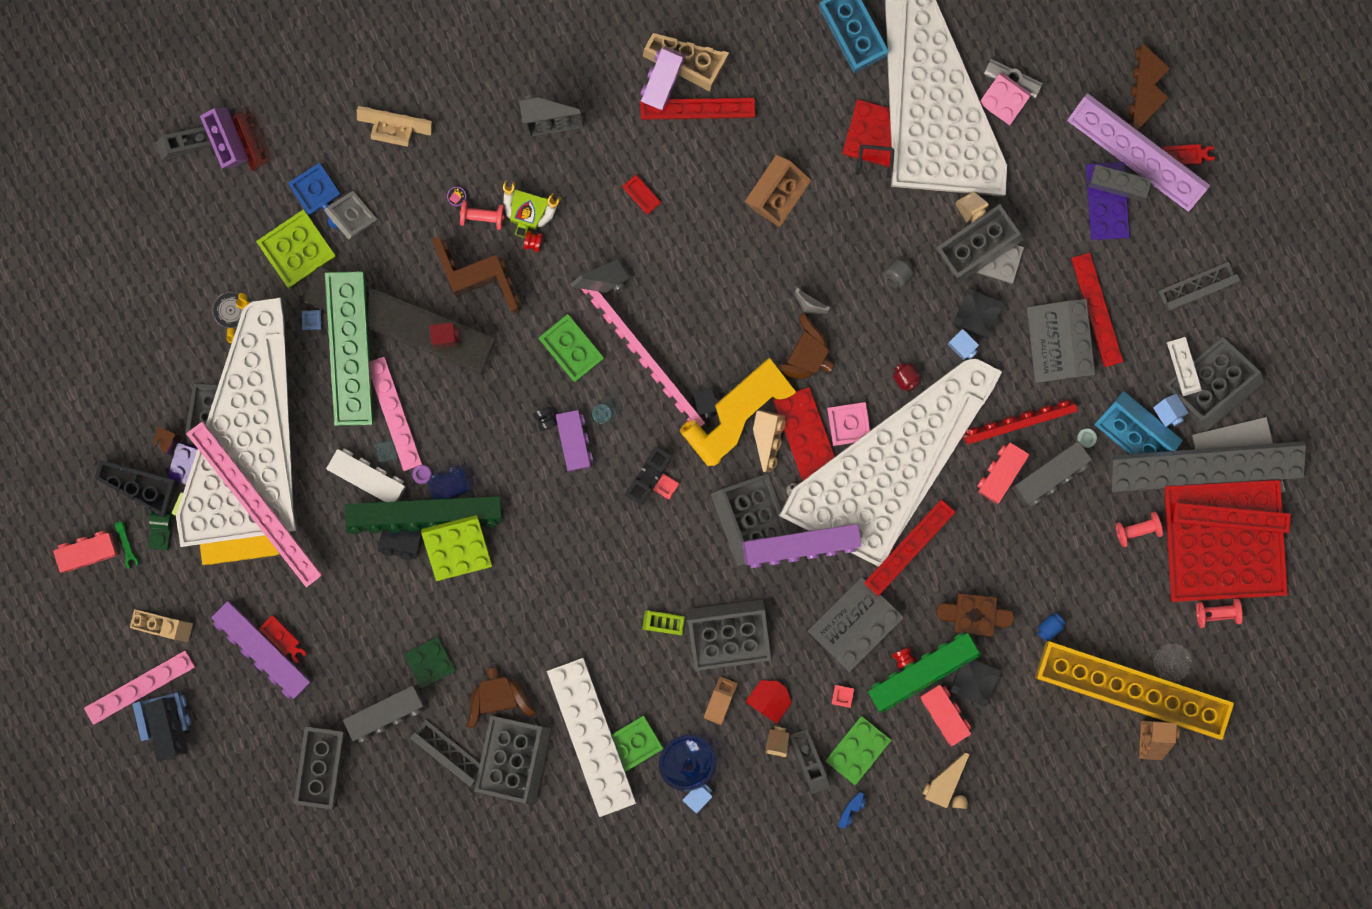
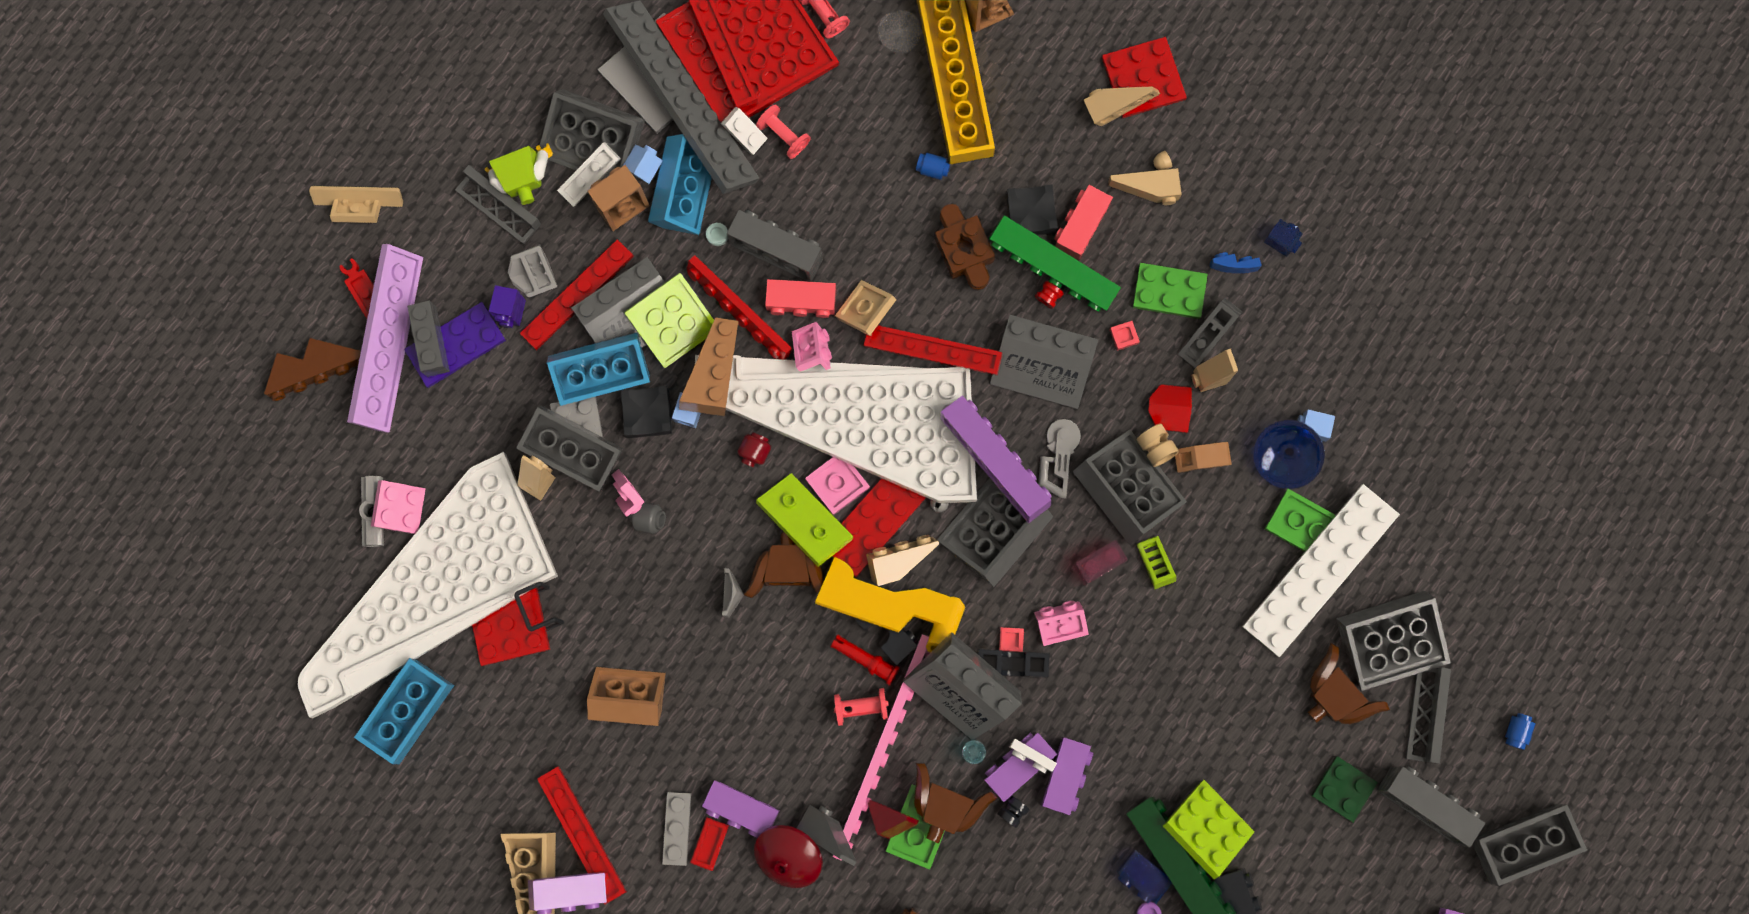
camera: 115 degrees left, 5 degrees down
(399, 811) = (1519, 731): none -> blue brick
(548, 470) = (1067, 776): none -> medium lavender brick
(574, 371) = (944, 807): none -> reddish brown torso
(582, 446) = (1040, 761): none -> white plate
(586, 327) = (889, 821): none -> dark red slope
(602, 243) = (788, 856): none -> dark red dish
(650, 431) = (964, 687): none -> dark grey slope
(653, 228) = (739, 809): none -> medium lavender brick
(658, 528) = (1061, 622): none -> bright pink bracket
(665, 177) = (676, 828): none -> light grey plate
(677, 352) = (861, 706): none -> coral hose
(685, 580) = (1100, 562): none -> clear pink brick
(702, 378) = (875, 665): none -> red pin
(747, 671) = (1157, 445): none -> tan wheel
(790, 606) = (1062, 439): none -> light grey piece
(834, 384) = (804, 519): none -> lime plate
(850, 859) = (1284, 238): none -> clear blue brick
(922, 267) = (630, 499): none -> bright pink bracket
(960, 459) = (811, 347): none -> bright pink bracket
(968, 515) = (865, 307): none -> tan plate
(978, 374) = (710, 377): none -> medium nougat wedge
(1025, 786) = (1112, 103): none -> tan slope
(1028, 295) = (598, 369): none -> dark azure brick
(1033, 827) = (1146, 66): none -> red plate
(1037, 368) = (671, 320): none -> plate
(1113, 252) = (507, 306): none -> dark purple brick
(1131, 285) = (531, 271): none -> light grey slope
(1151, 376) = (618, 197): none -> medium nougat brick
(1155, 500) = (744, 130): none -> white plate
(1212, 315) = (519, 172): none -> lime torso
(1256, 182) = (355, 203): none -> tan bracket

